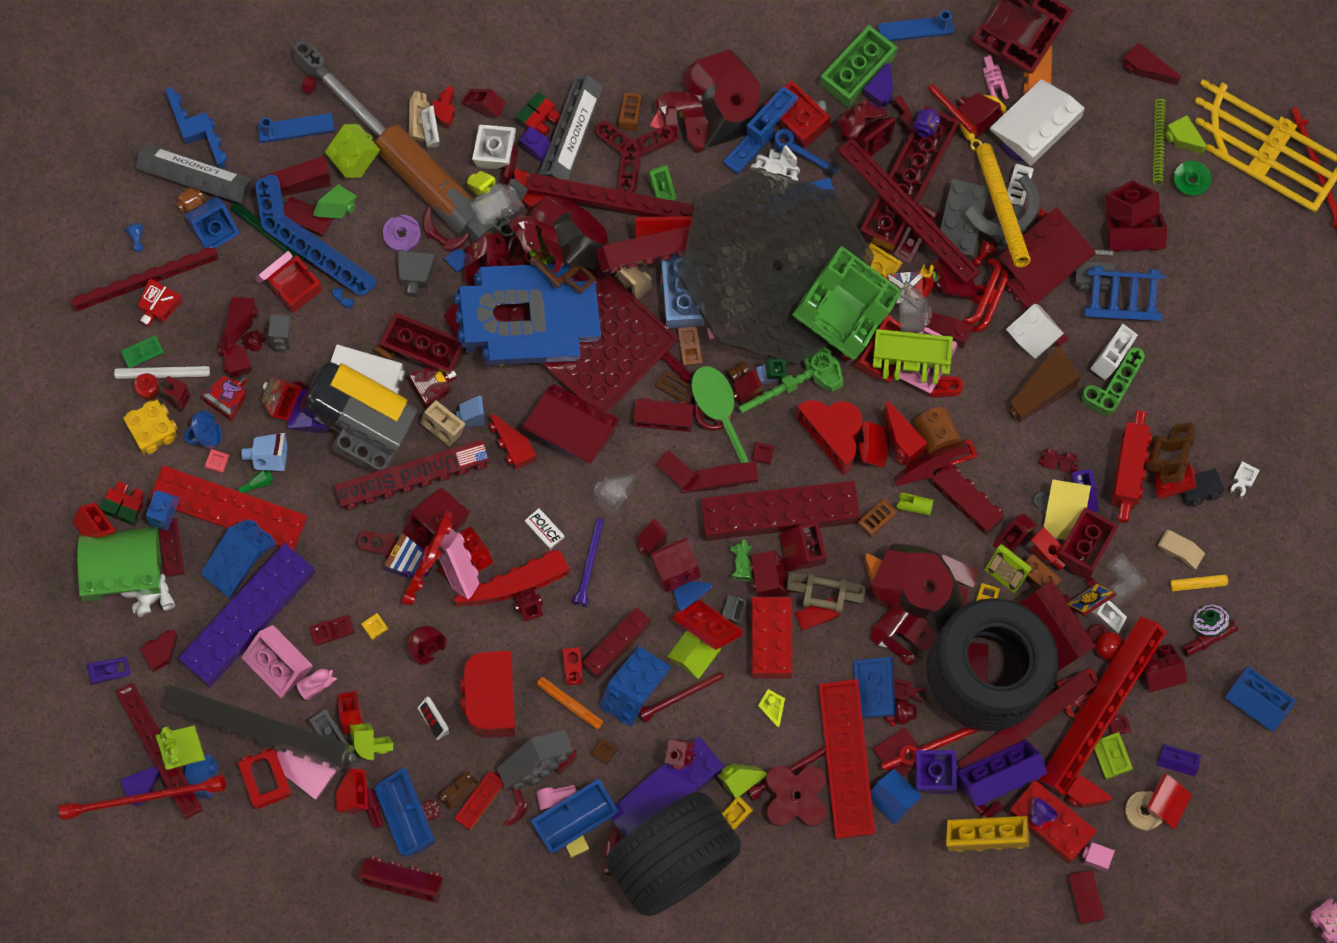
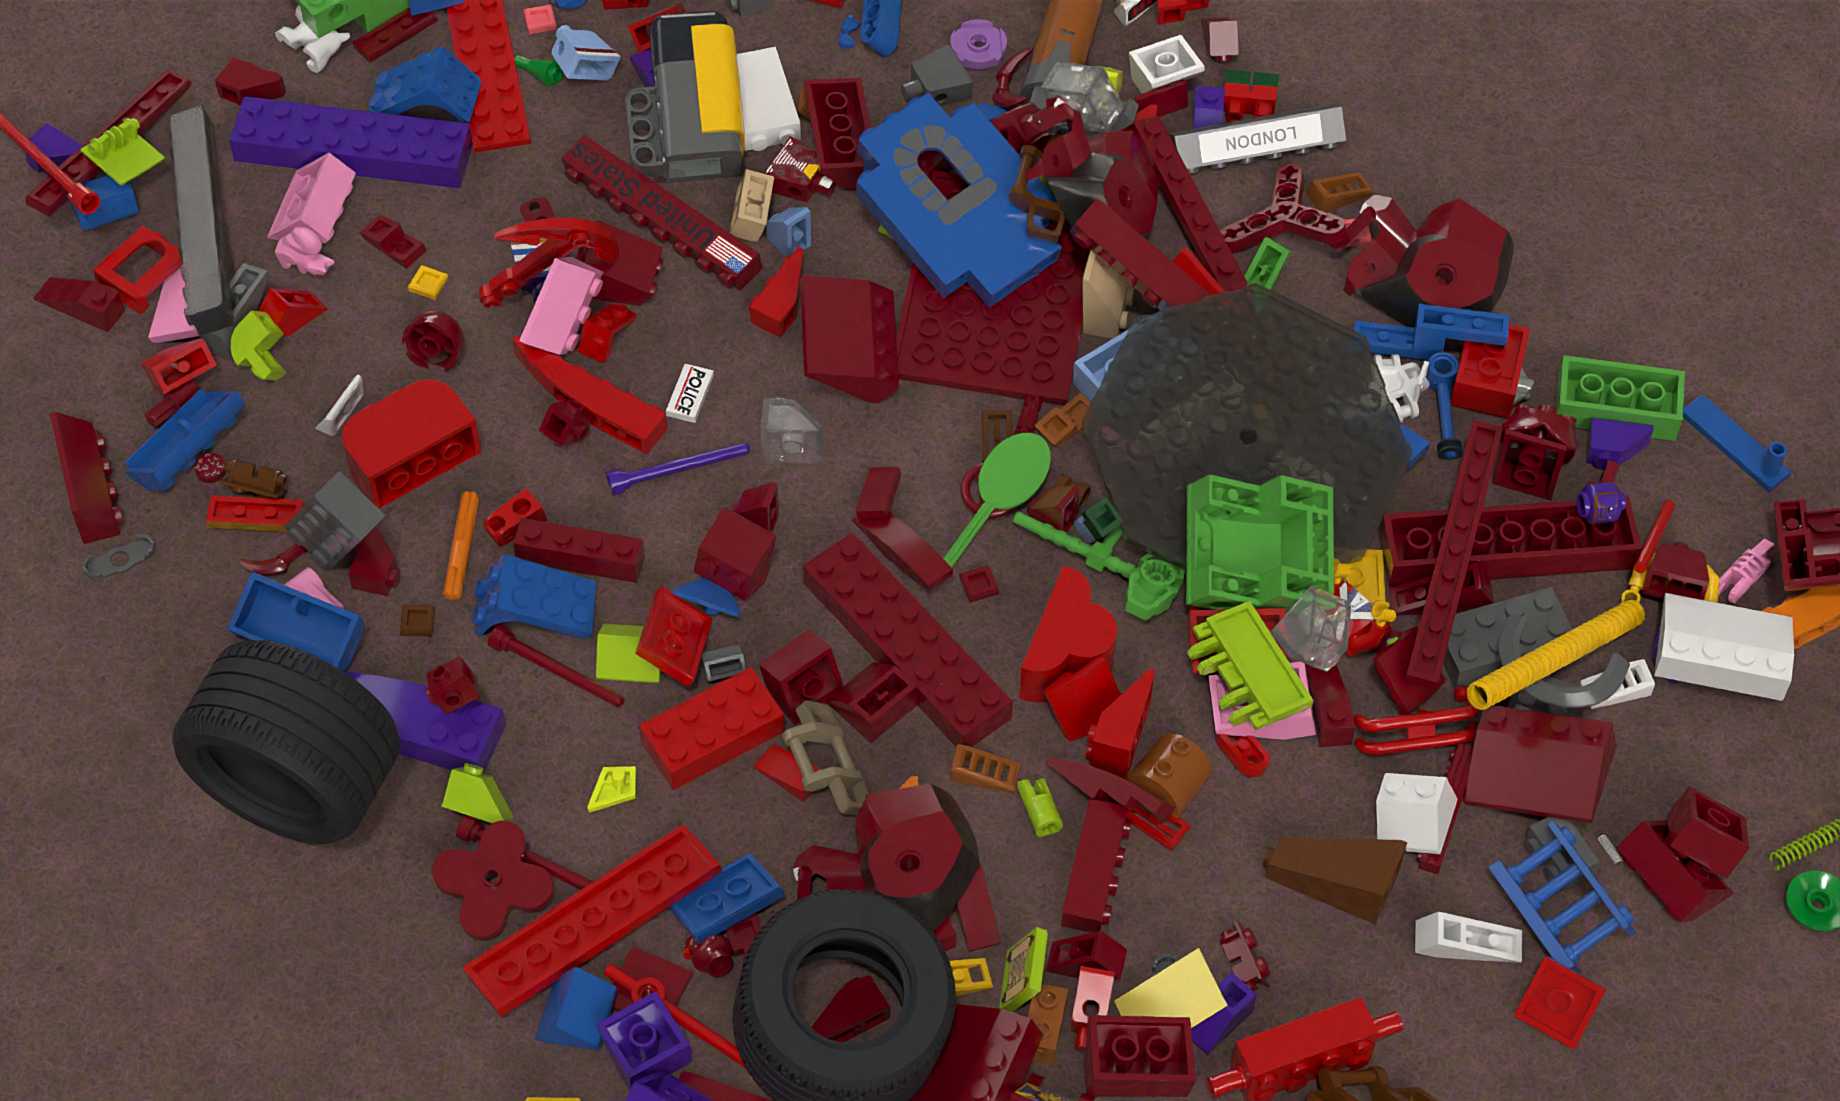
camera: 60 degrees right, 15 degrees down
(106, 670) = (190, 49): dark purple slope -> none
(263, 824) = (83, 300): none -> dark red slope
(462, 875) = (138, 552): none -> dark grey piece
(663, 415) = (944, 437): dark red brick -> none
(737, 812) = (421, 824): yellow slope -> none
(743, 569) = (817, 623): bright green animal -> none
(1119, 381) = (1424, 965): bright green beam -> none
(1174, 332) = (1560, 1002): none -> red plate

